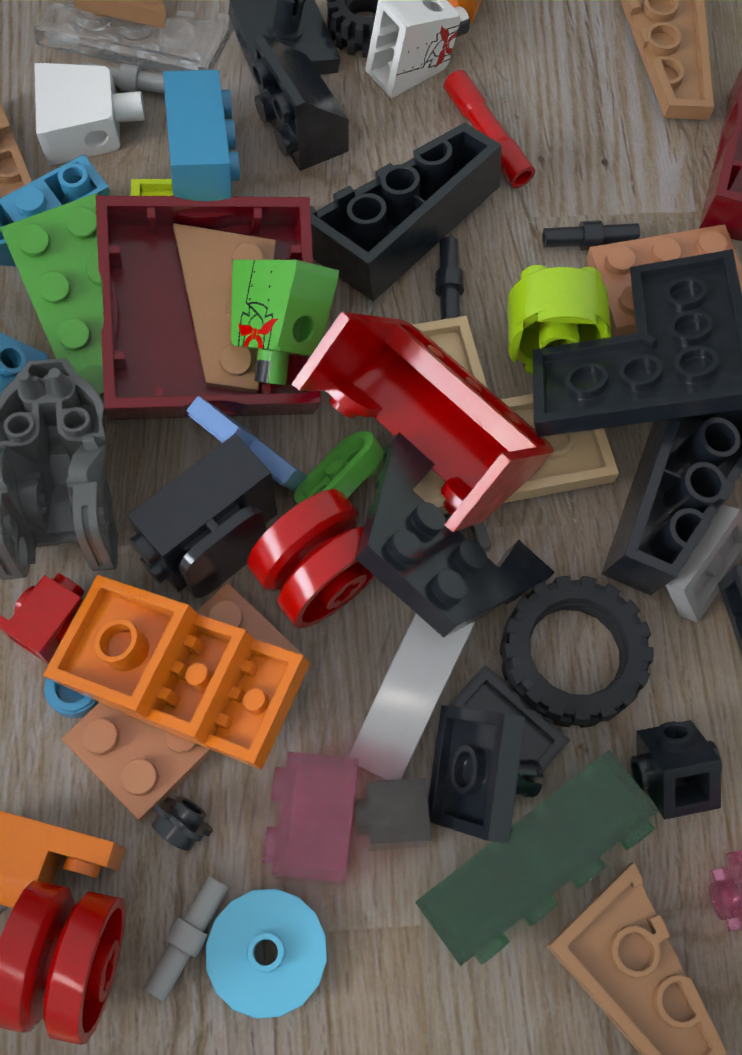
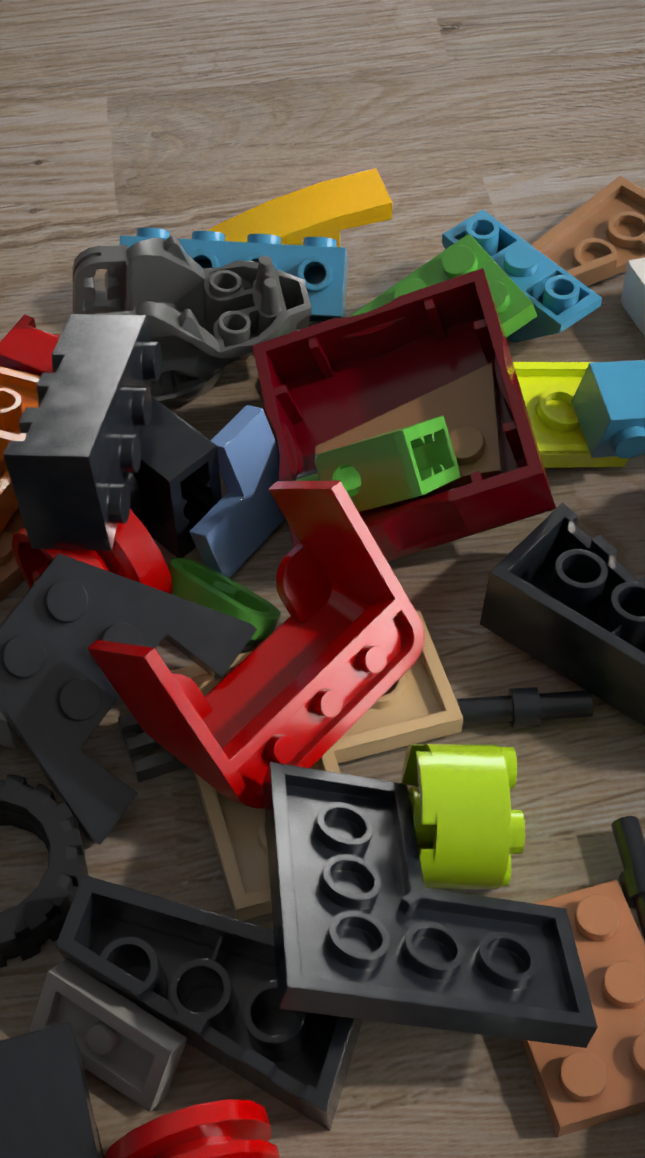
camera: 90 degrees right, 15 degrees down
(230, 512) = (85, 433): none -> black wedge

